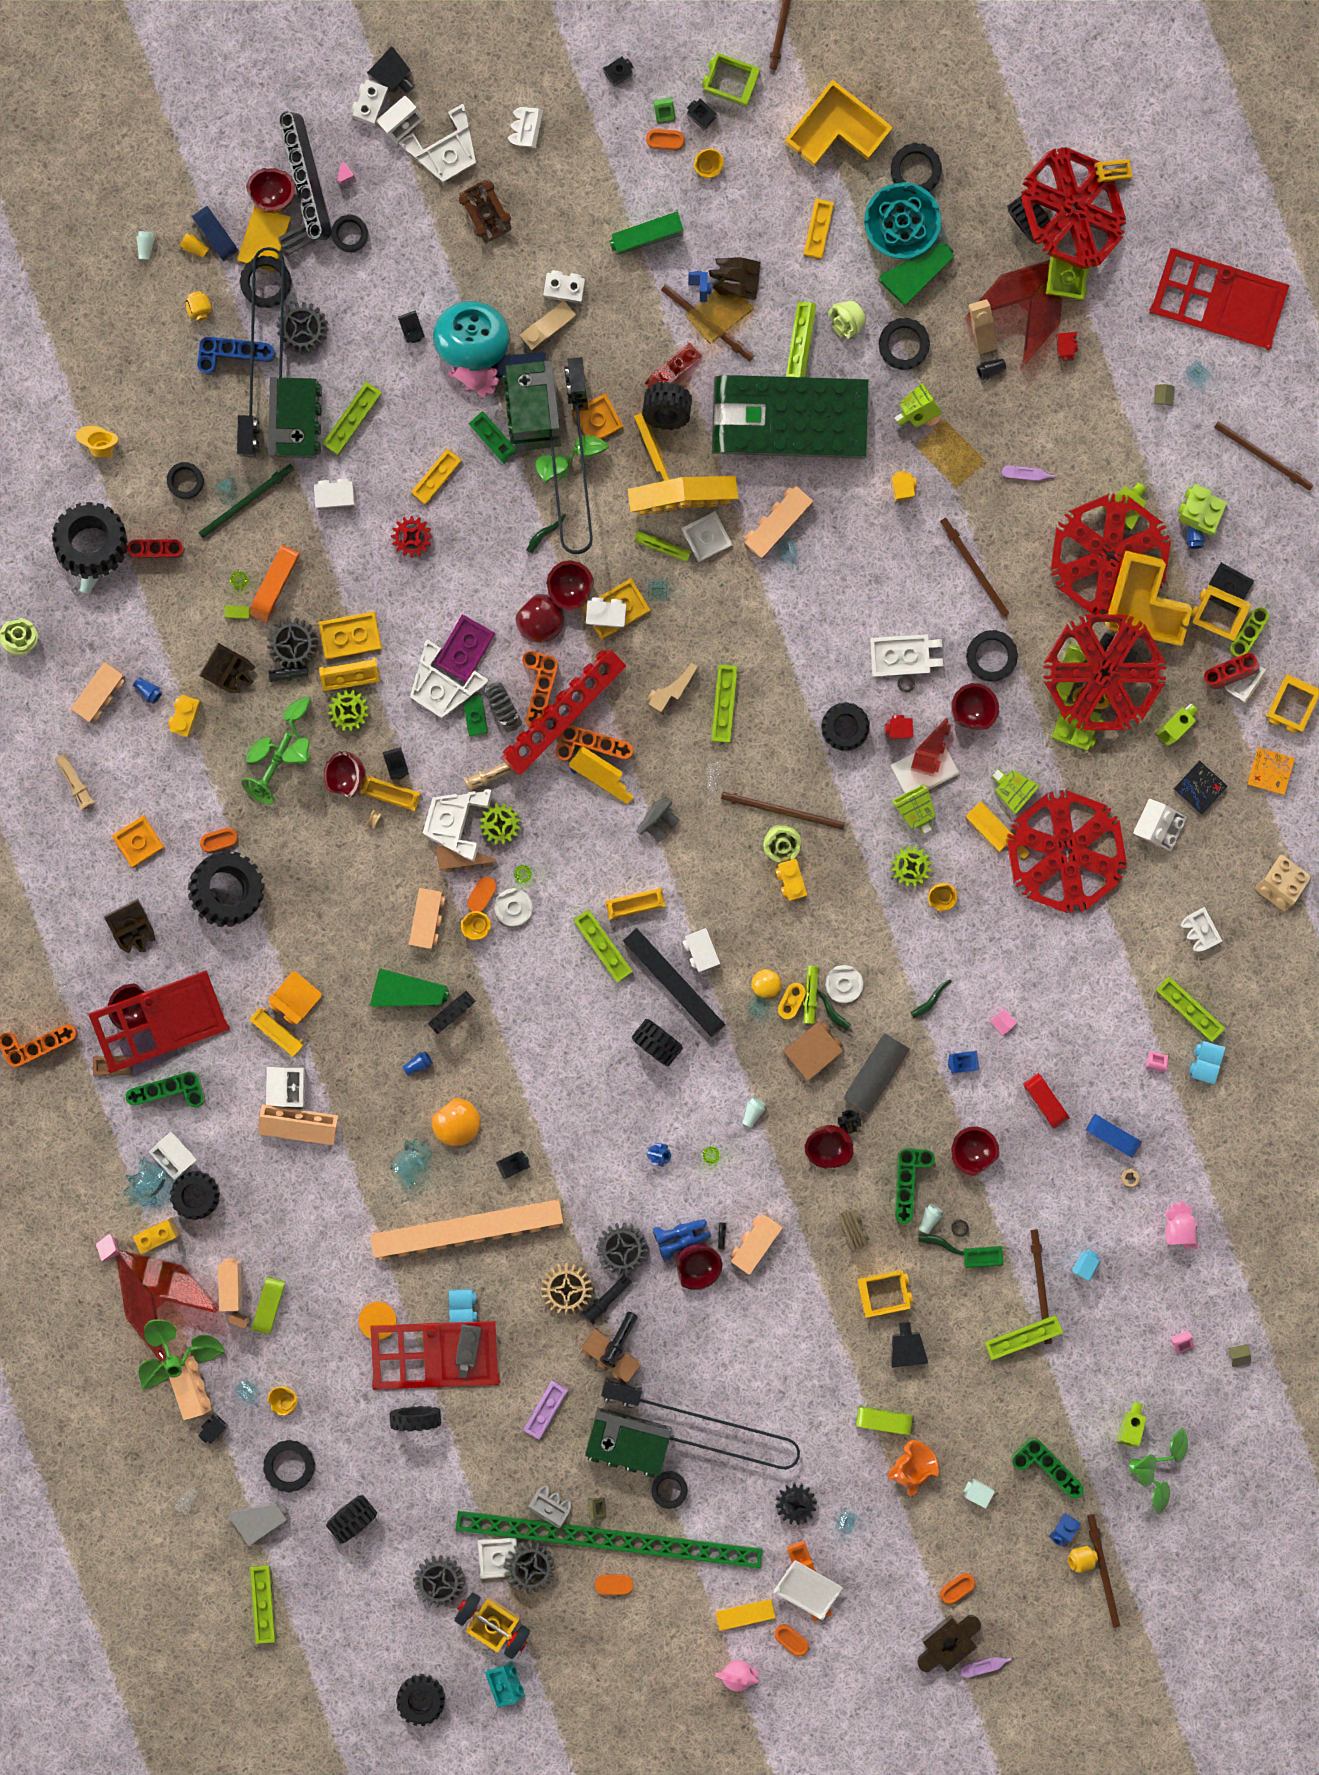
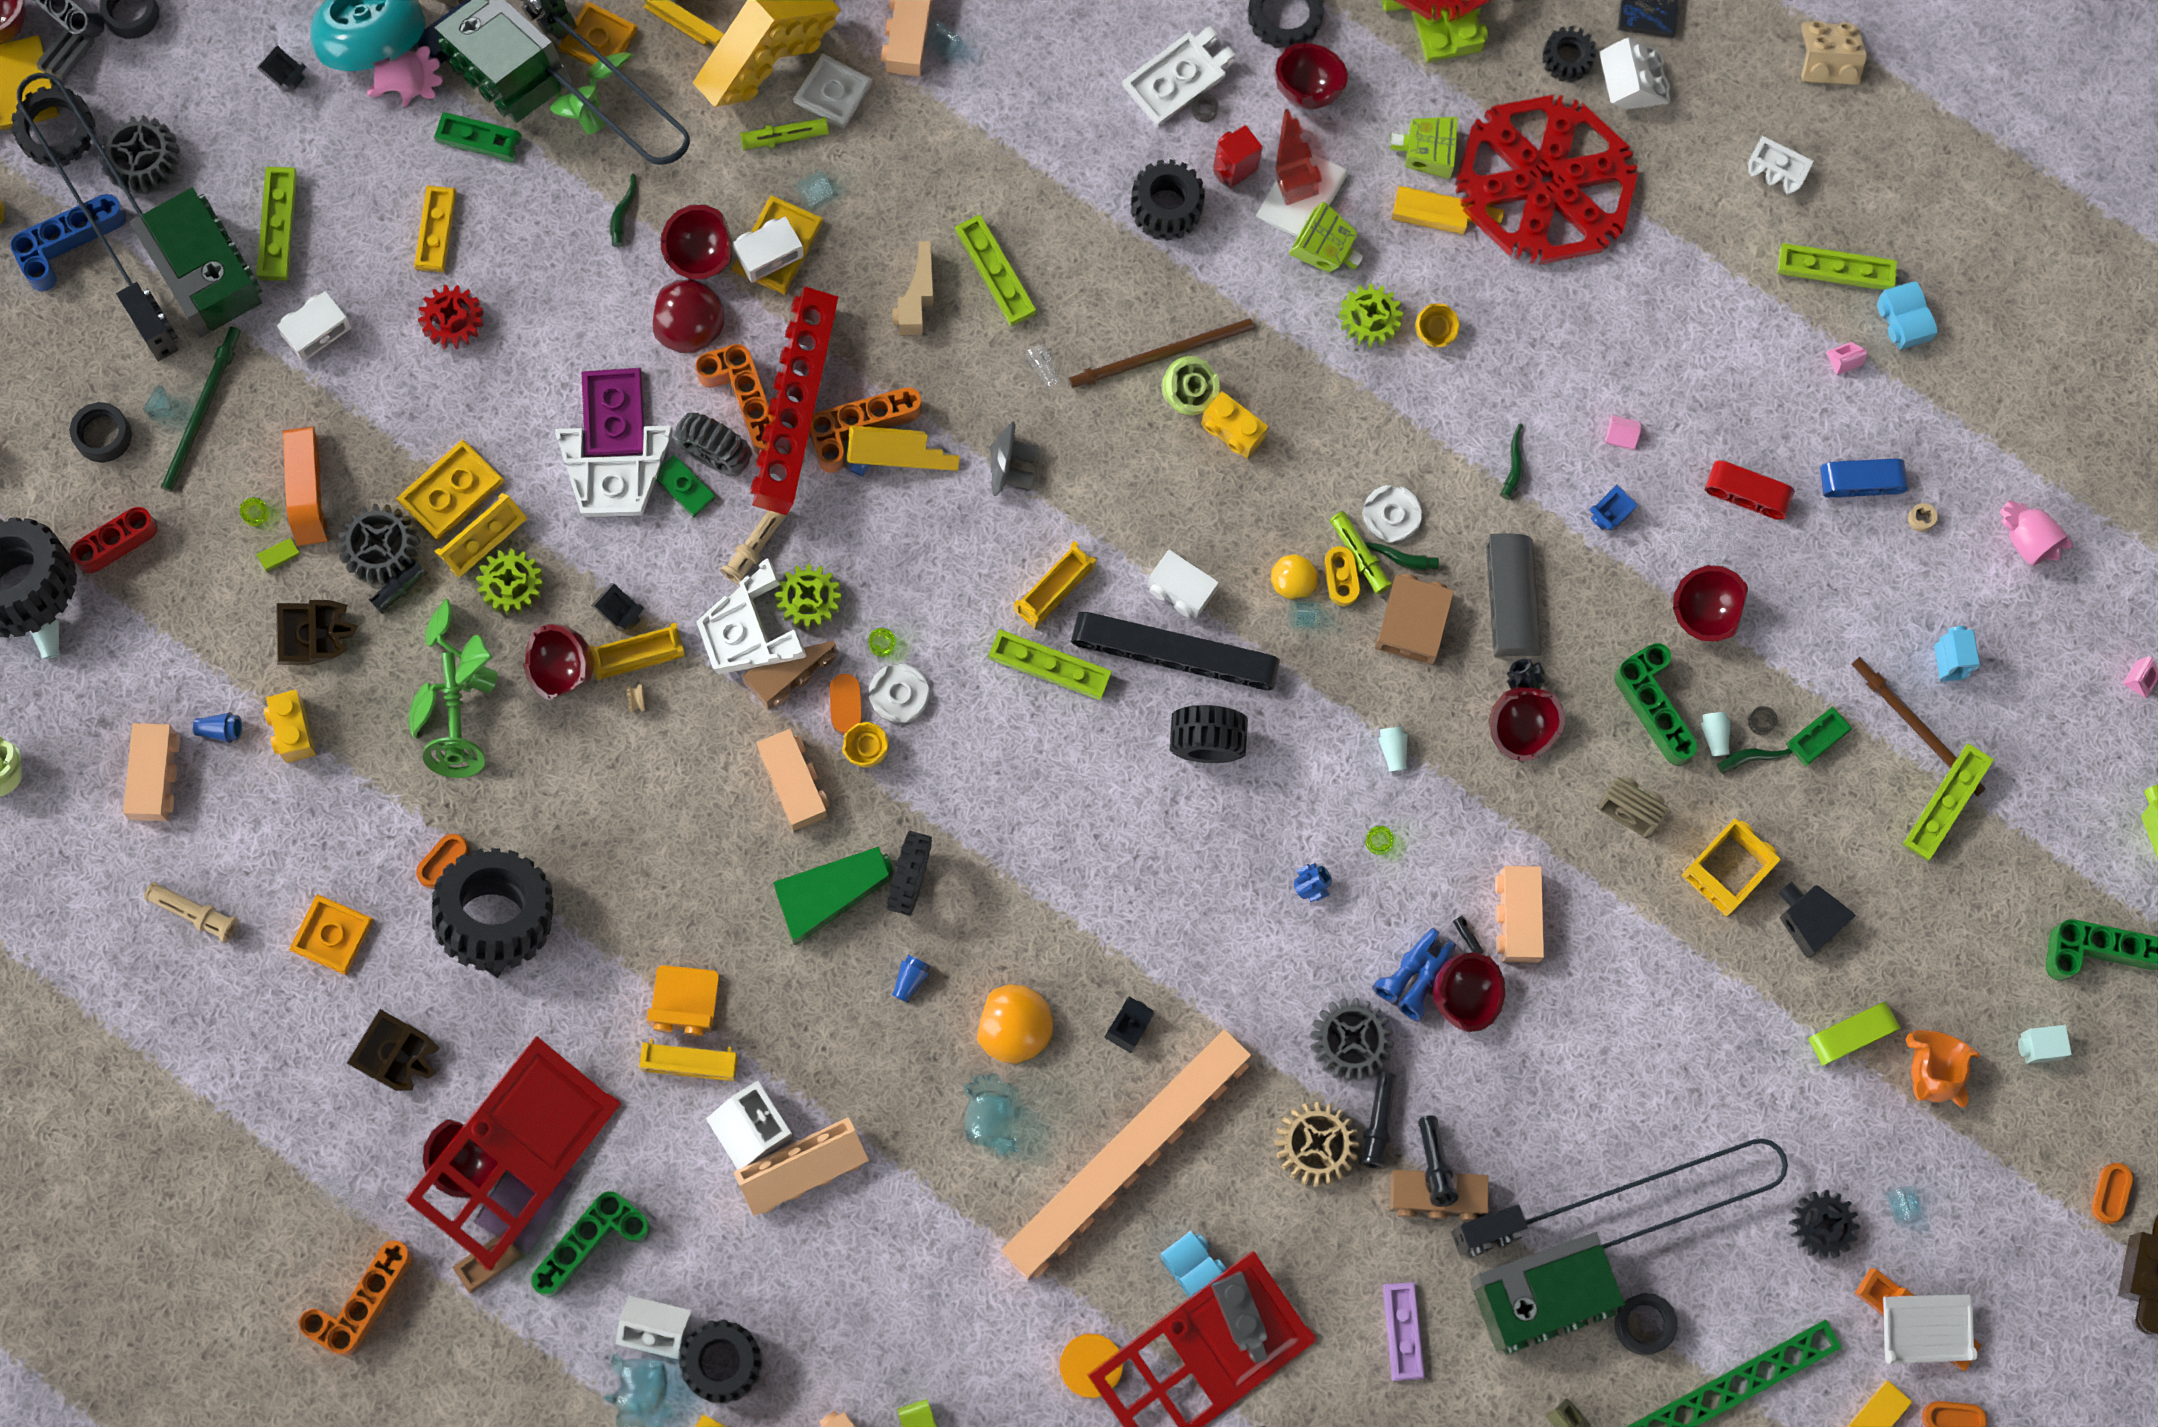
camera: 40 degrees left, 15 degrees down
(1121, 787) = (1573, 39): none -> black tyre

